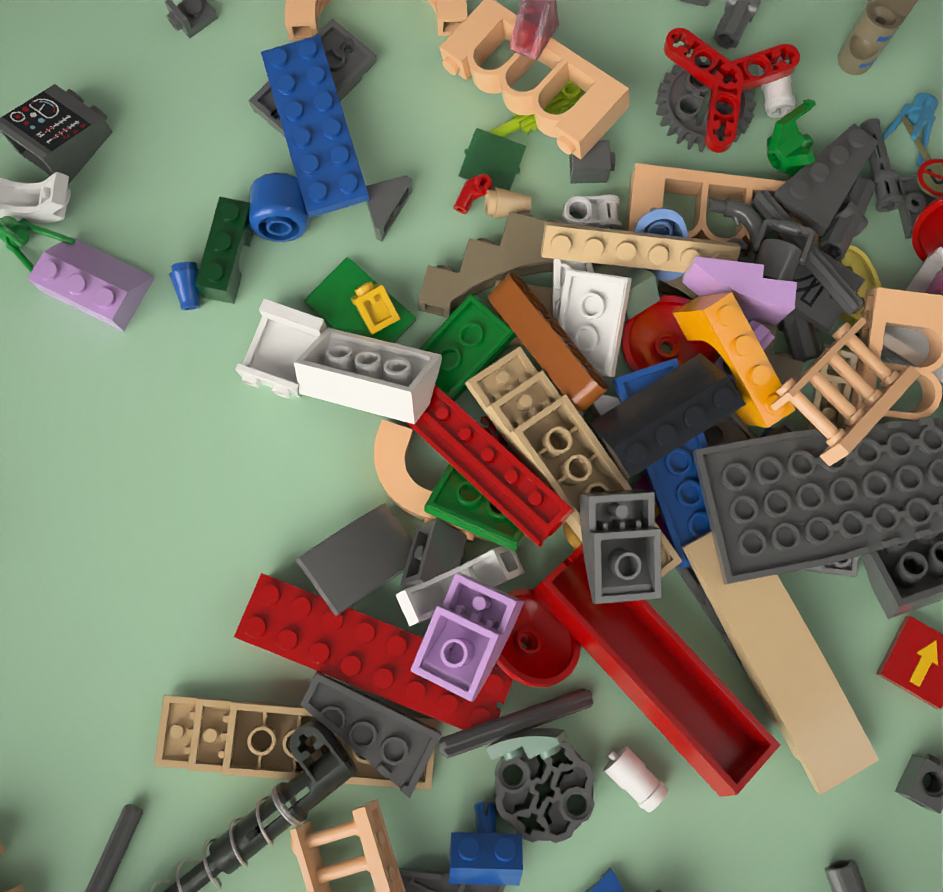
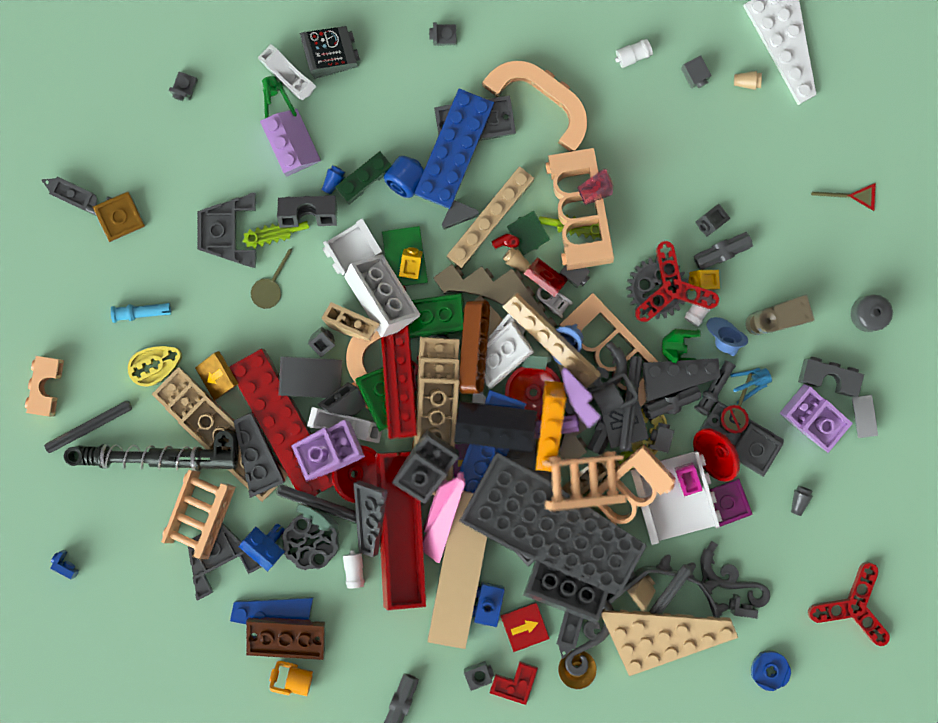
camera: 45 degrees right, 10 degrees up
(40, 673) = (131, 312): none -> medium azure pin
(81, 467) = (218, 230): none -> dark grey wing
(109, 718) = (147, 356): none -> light yellow piece
(160, 413) = (268, 234): none -> lime piece
(163, 357) = (293, 208): none -> dark grey arch
(212, 498) = (267, 292): none -> olive piece
(227, 662) = (216, 375): none -> pearl gold tile
(338, 498) = (324, 339): none -> dark grey brick
(355, 441) = (349, 322): none -> tan slope
(429, 175) = (490, 217): none -> tan arch
(561, 189) = (545, 277): none -> red tile
(595, 676) = (370, 510): none -> dark grey wing
(695, 598) = (441, 516): none -> bright pink wedge
(749, 44) = (705, 279): none -> yellow bracket
(840, 96) = (727, 336): none -> medium blue piece
(856, 670) = (489, 604): none -> blue brick
(878, 267) = (661, 438): none -> dark grey brick

